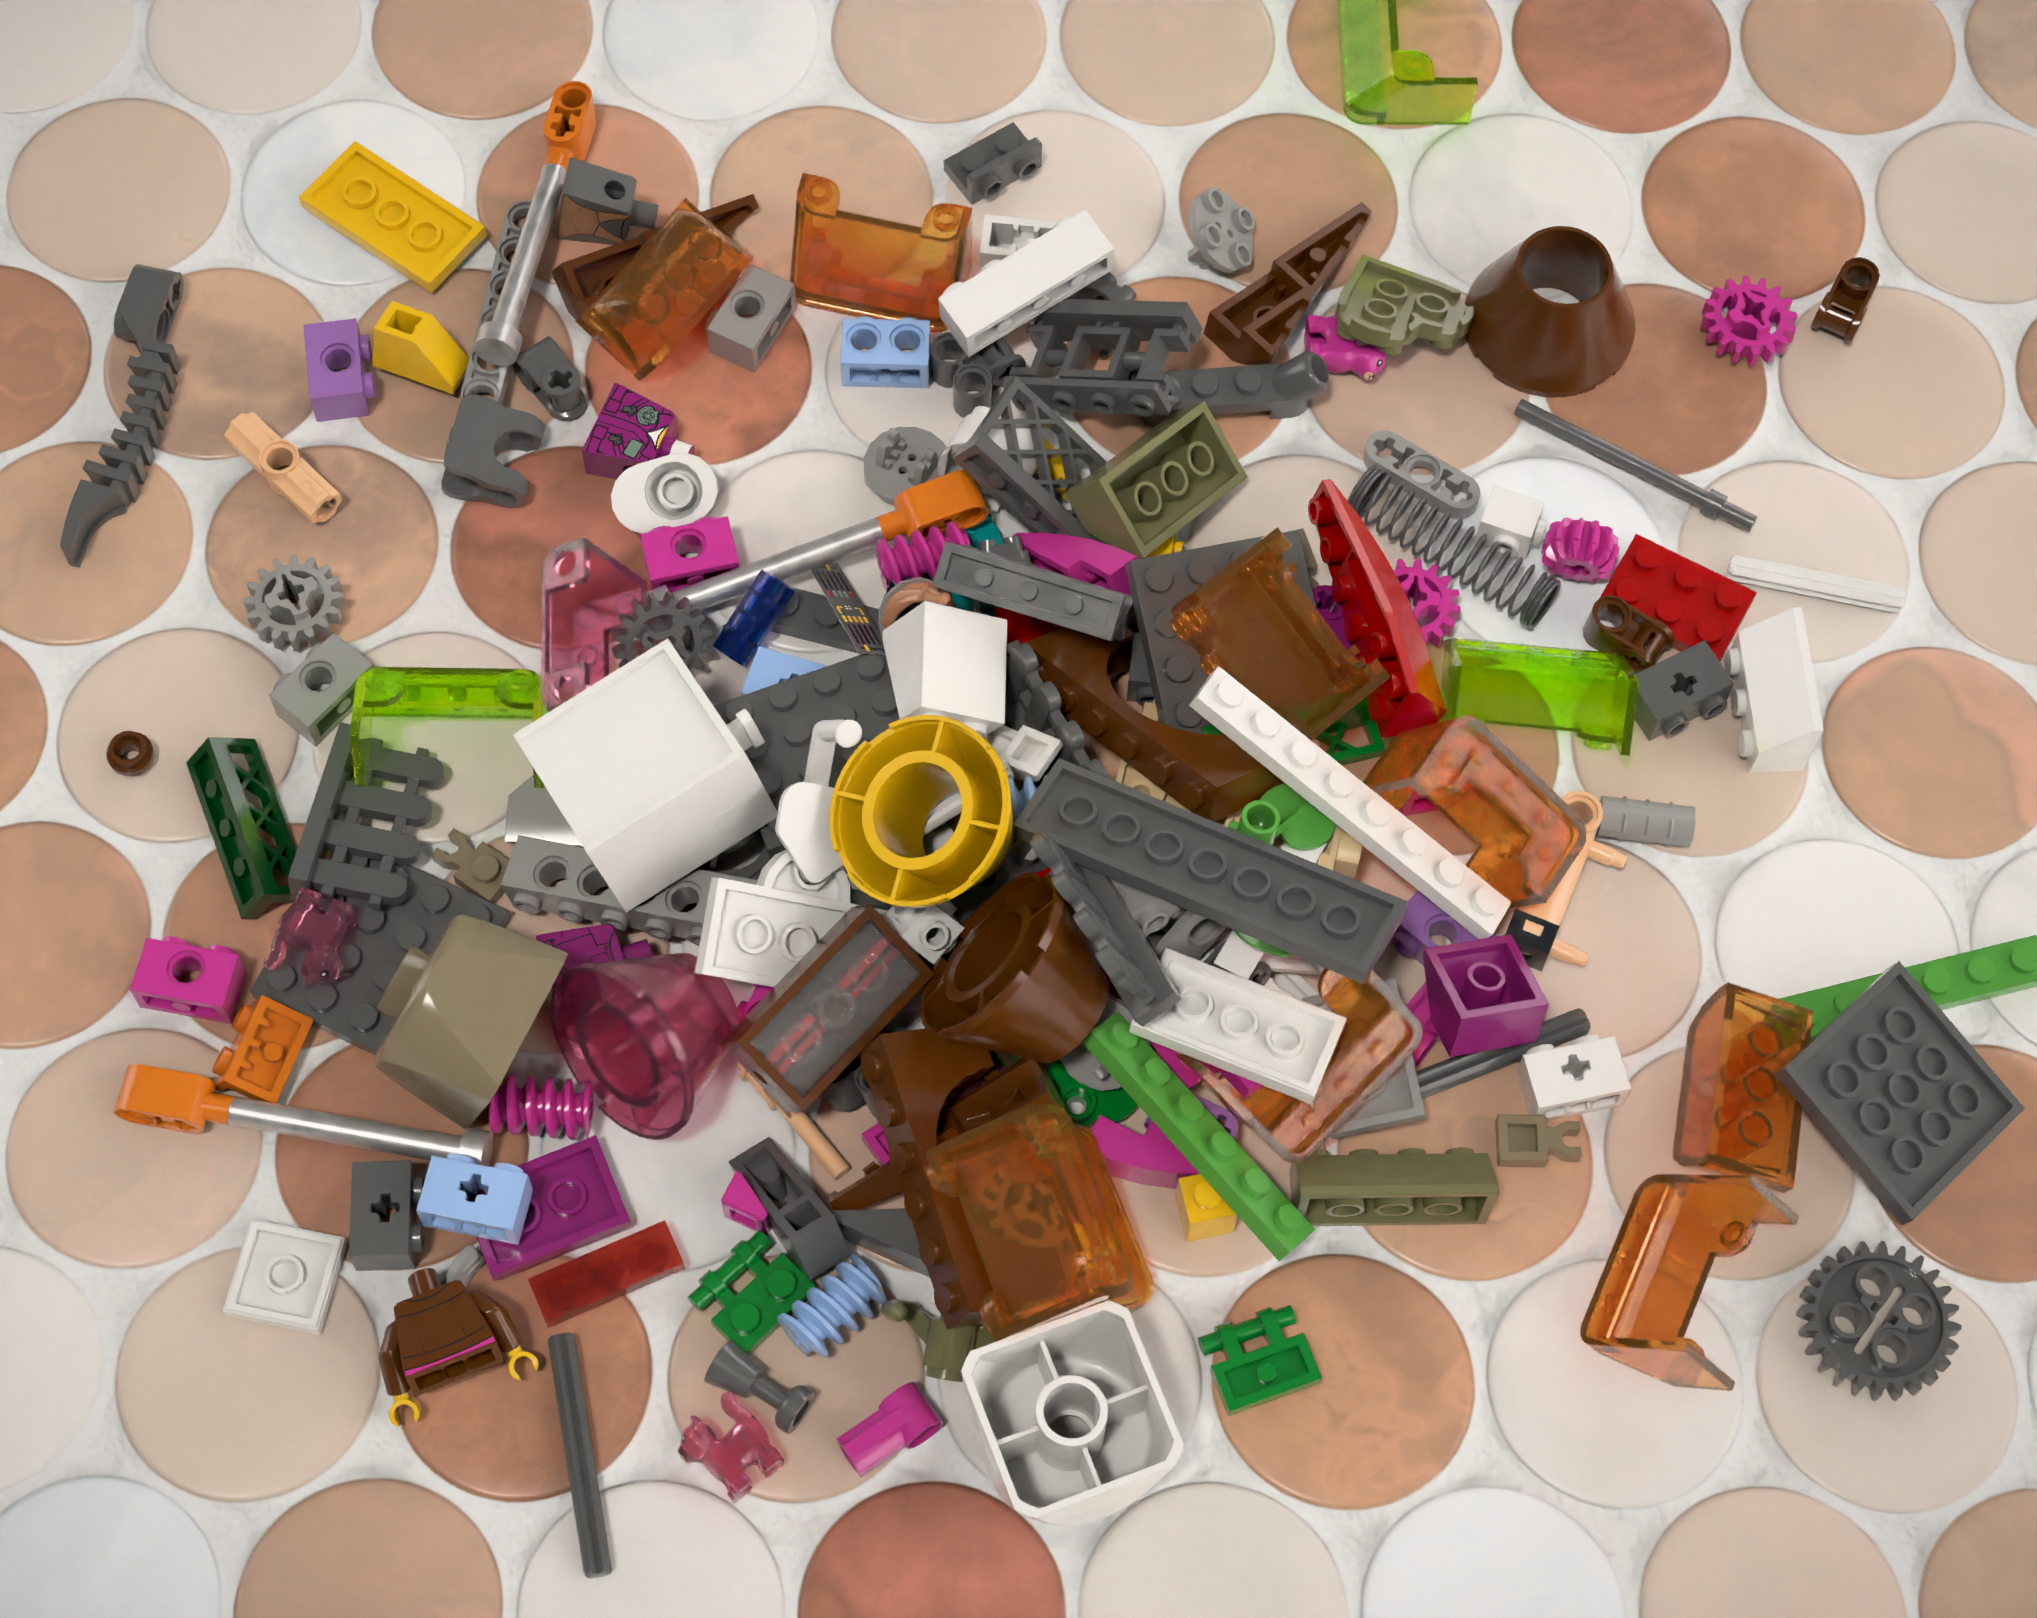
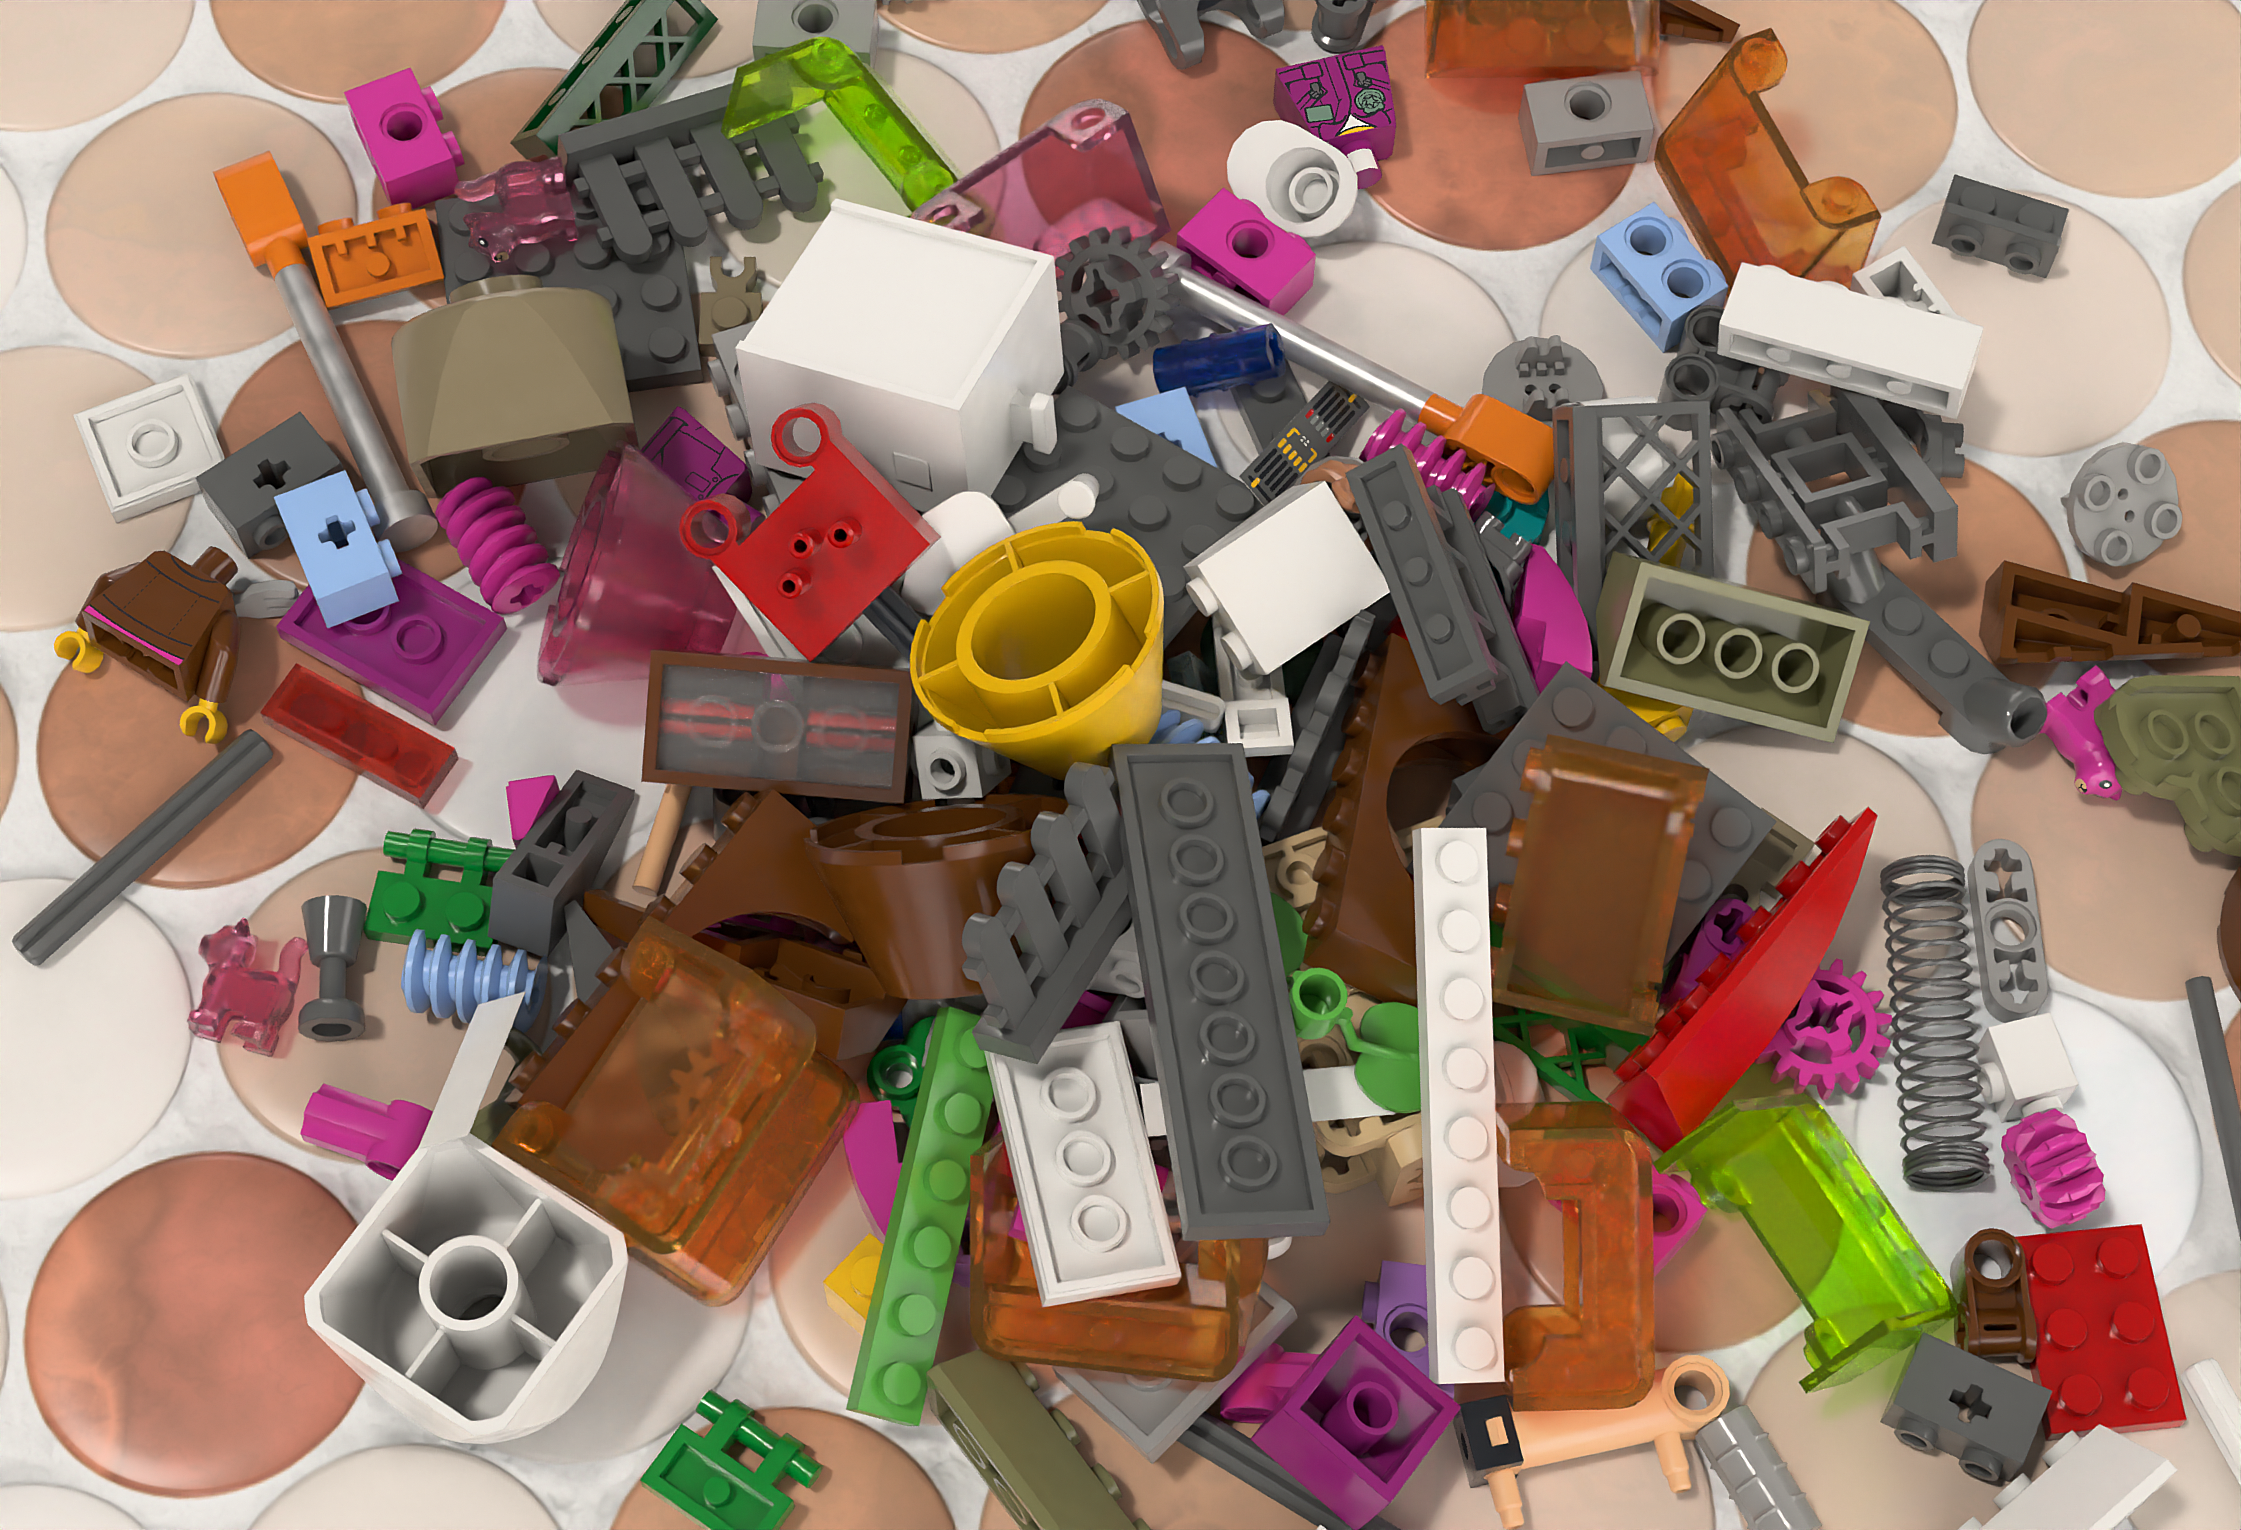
camera: 55 degrees right, 0 degrees up
(757, 895) = (825, 547): none -> red piece
(926, 1327) = (472, 1071): none -> white sticker

